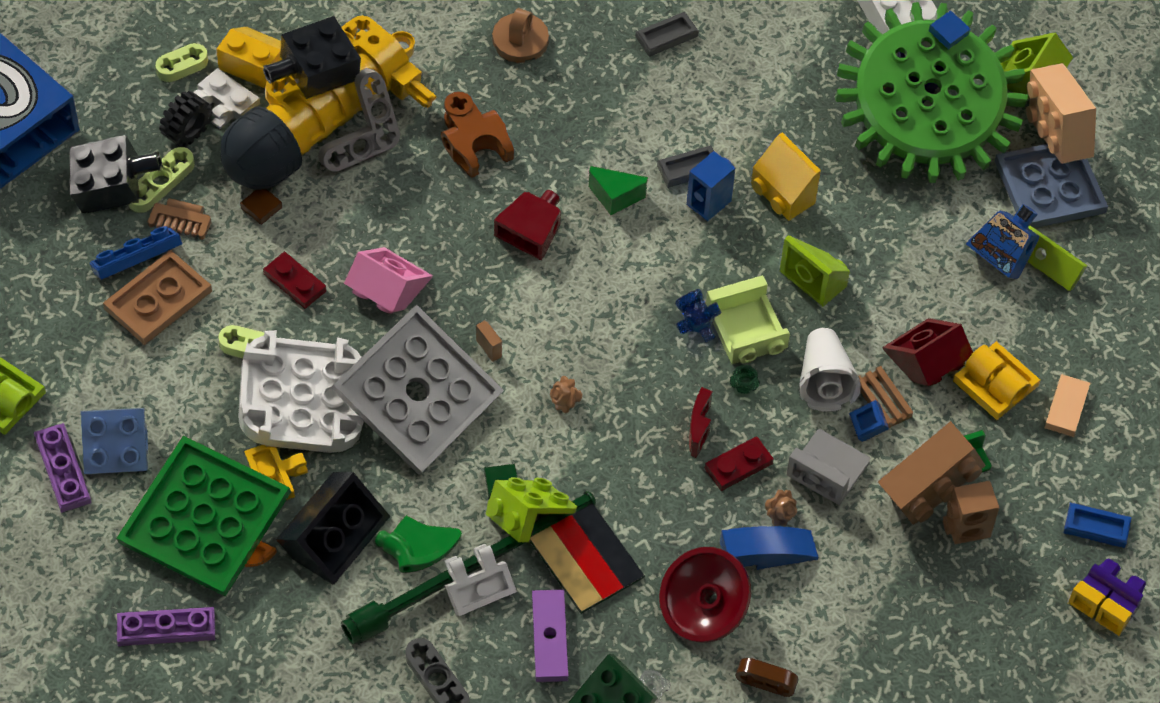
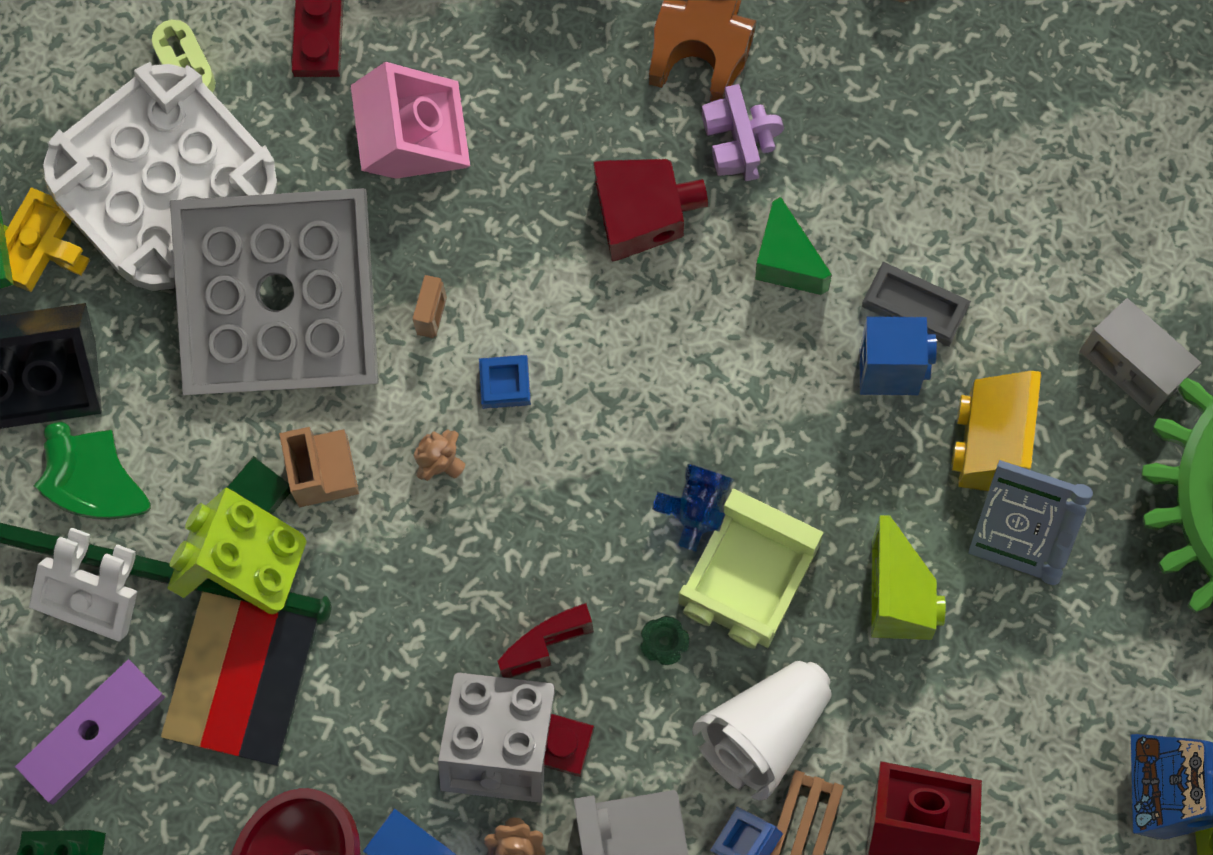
camera: 55 degrees right, 15 degrees up
(518, 445) = (318, 466): none -> medium nougat piece
(540, 158) = (732, 116): none -> lavender hips
(555, 344) = (504, 381): none -> blue tile
(667, 34) = (1086, 107): dark grey tile -> none
(728, 474) = (496, 737): none -> light grey bracket
(803, 108) = (1139, 356): none -> light grey hinge
(838, 199) = (1030, 522): none -> sand blue piece

